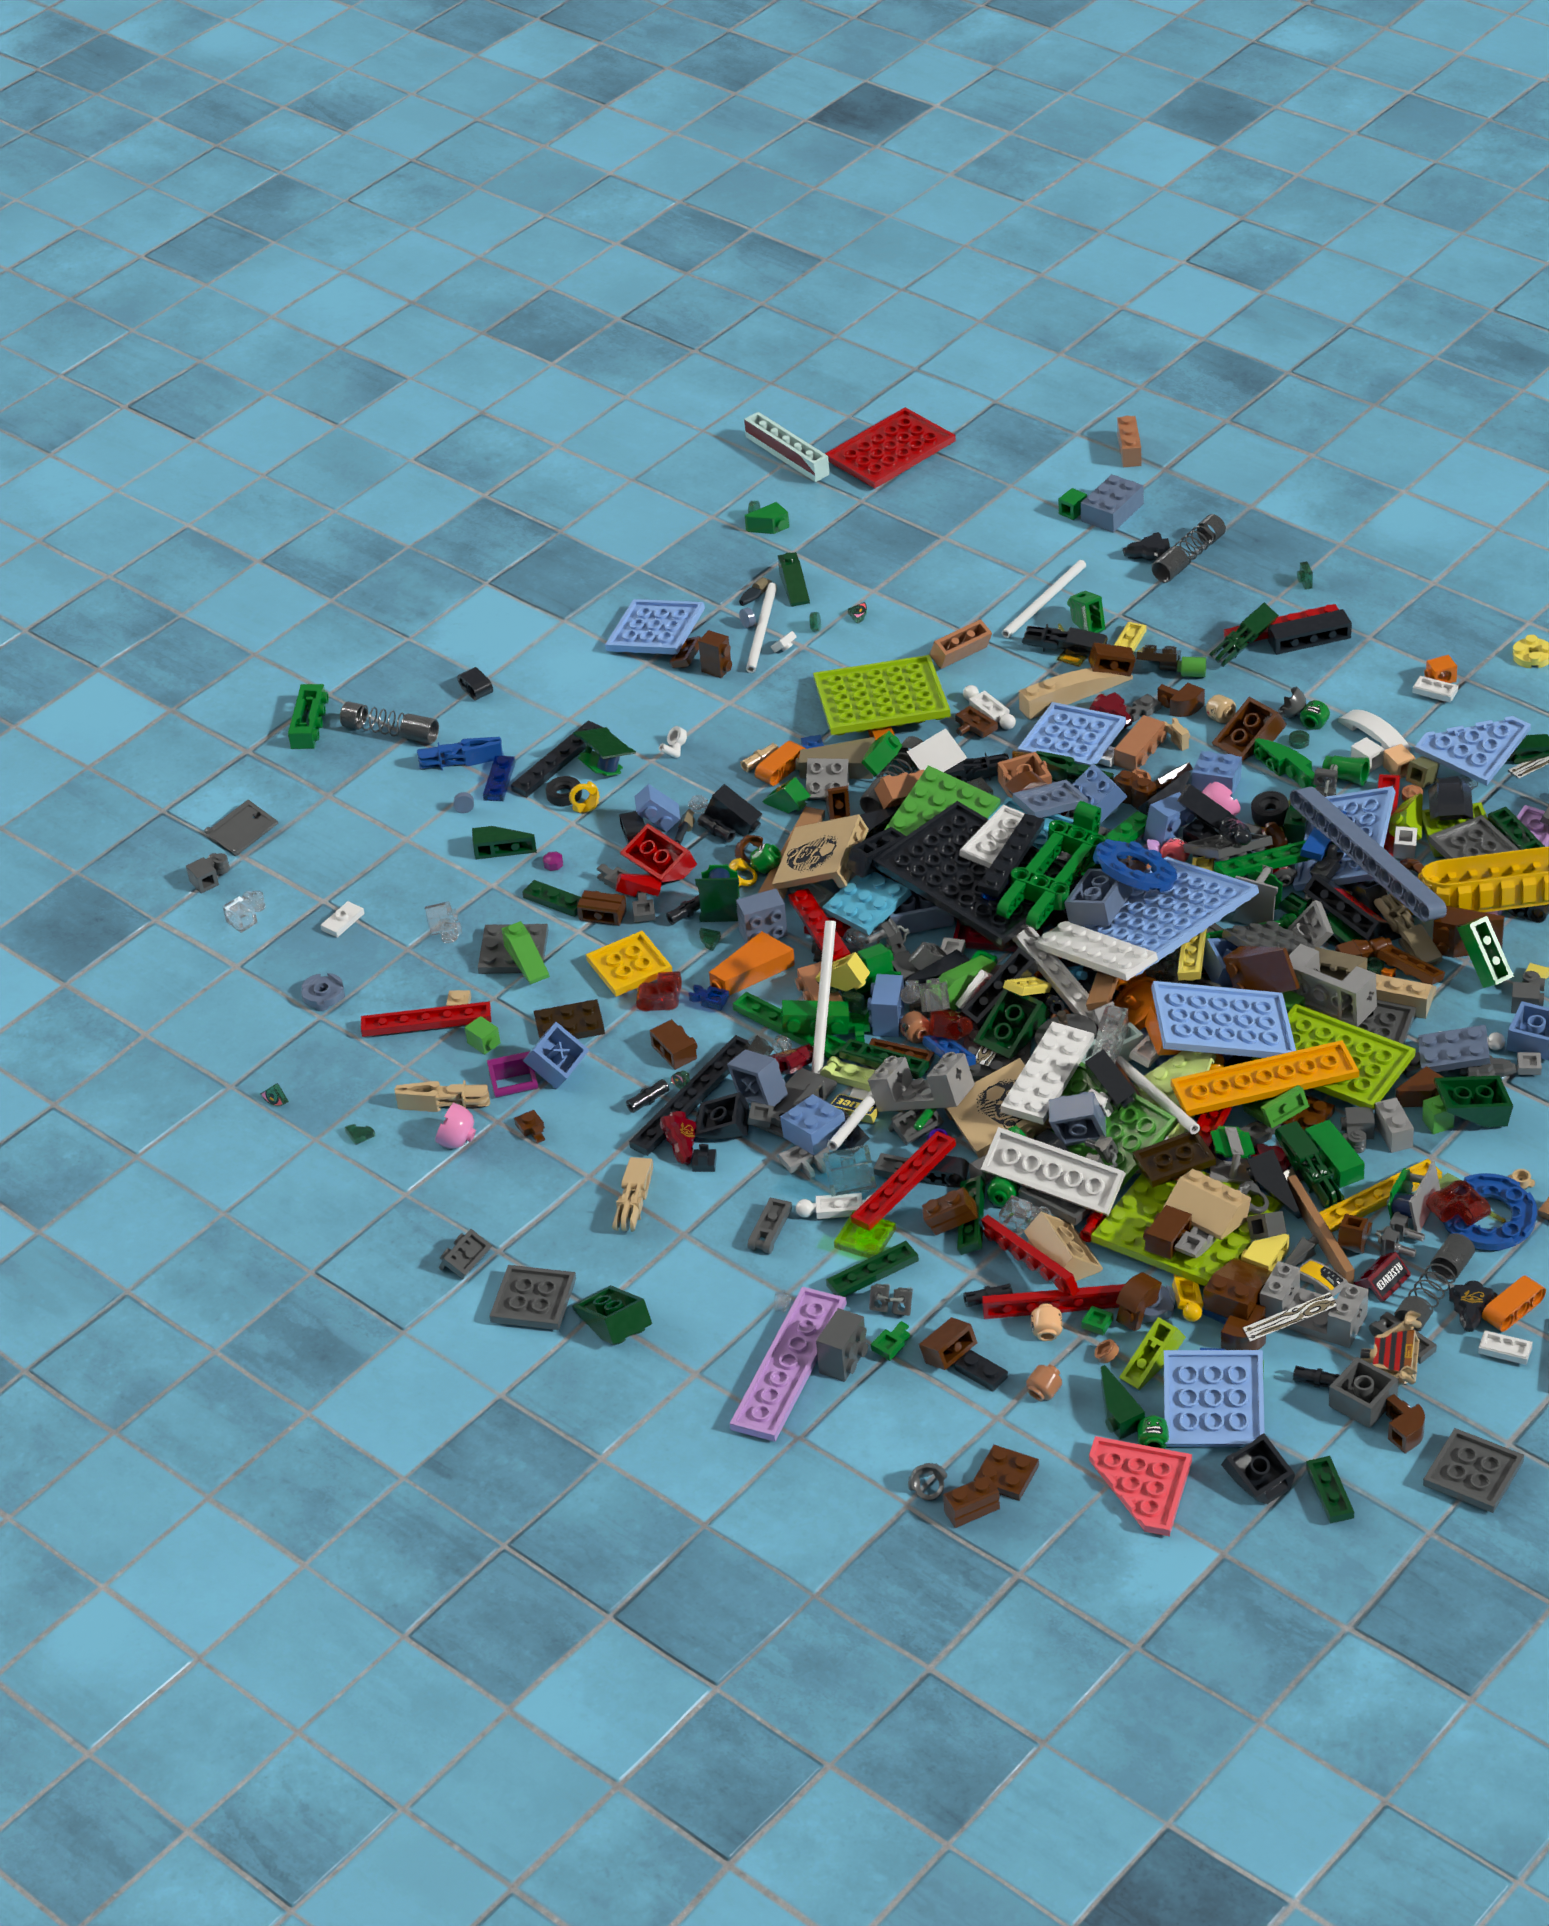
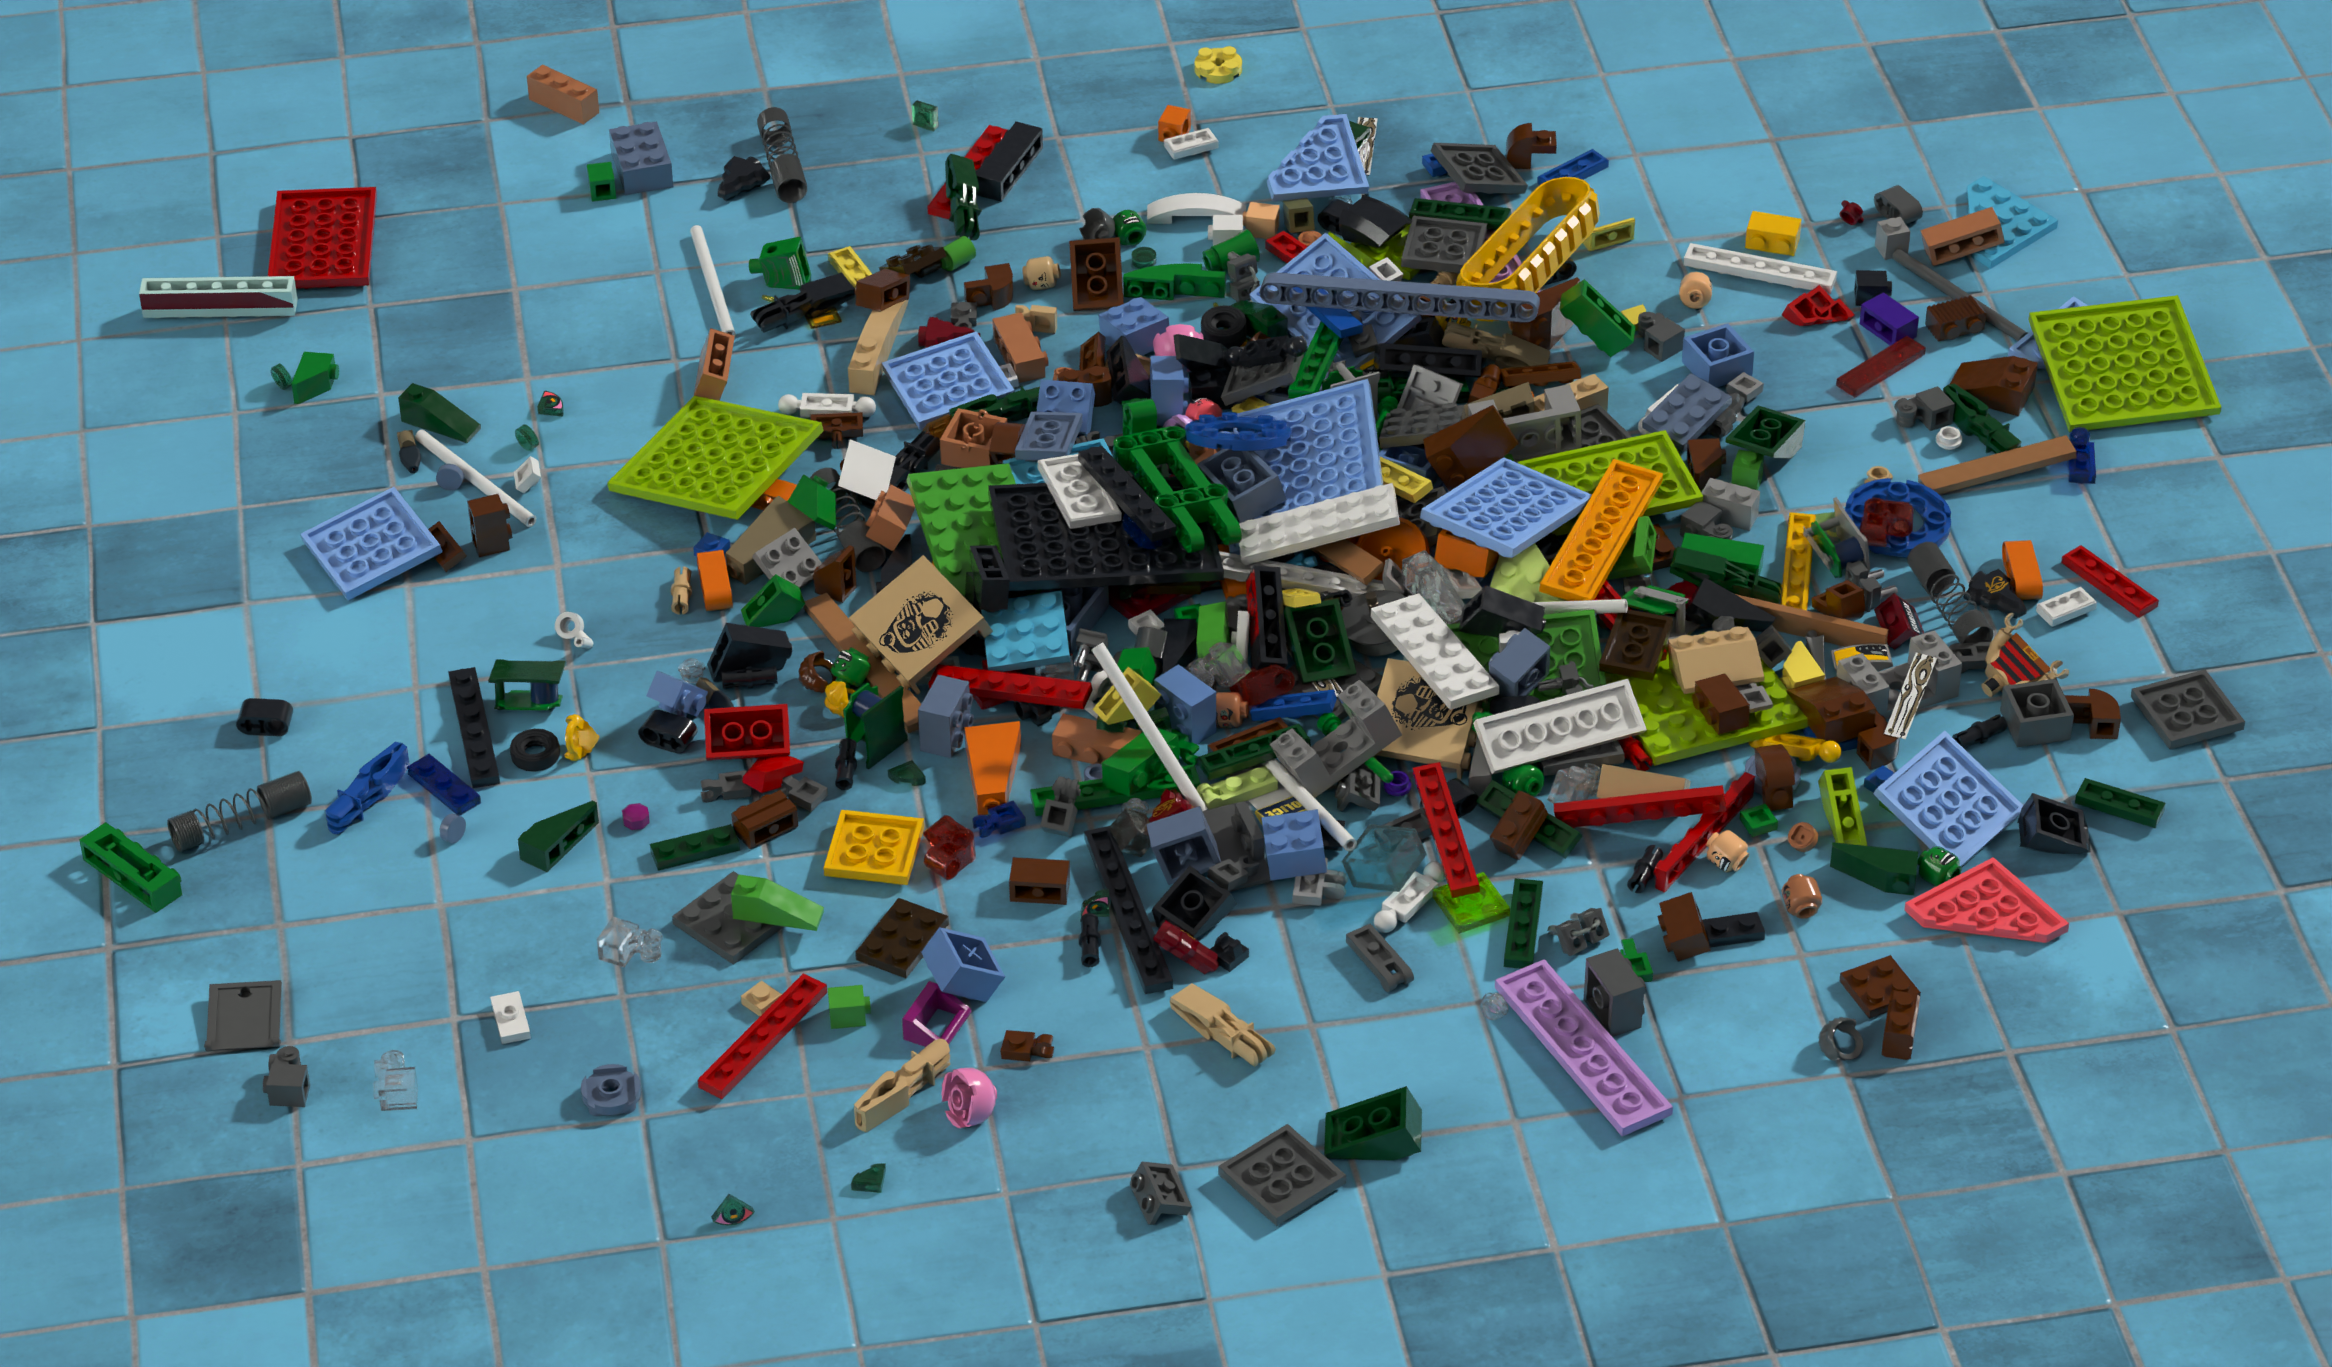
camera: 55 degrees left, 0 degrees up
(734, 1016) = (1061, 813): none -> dark grey brick

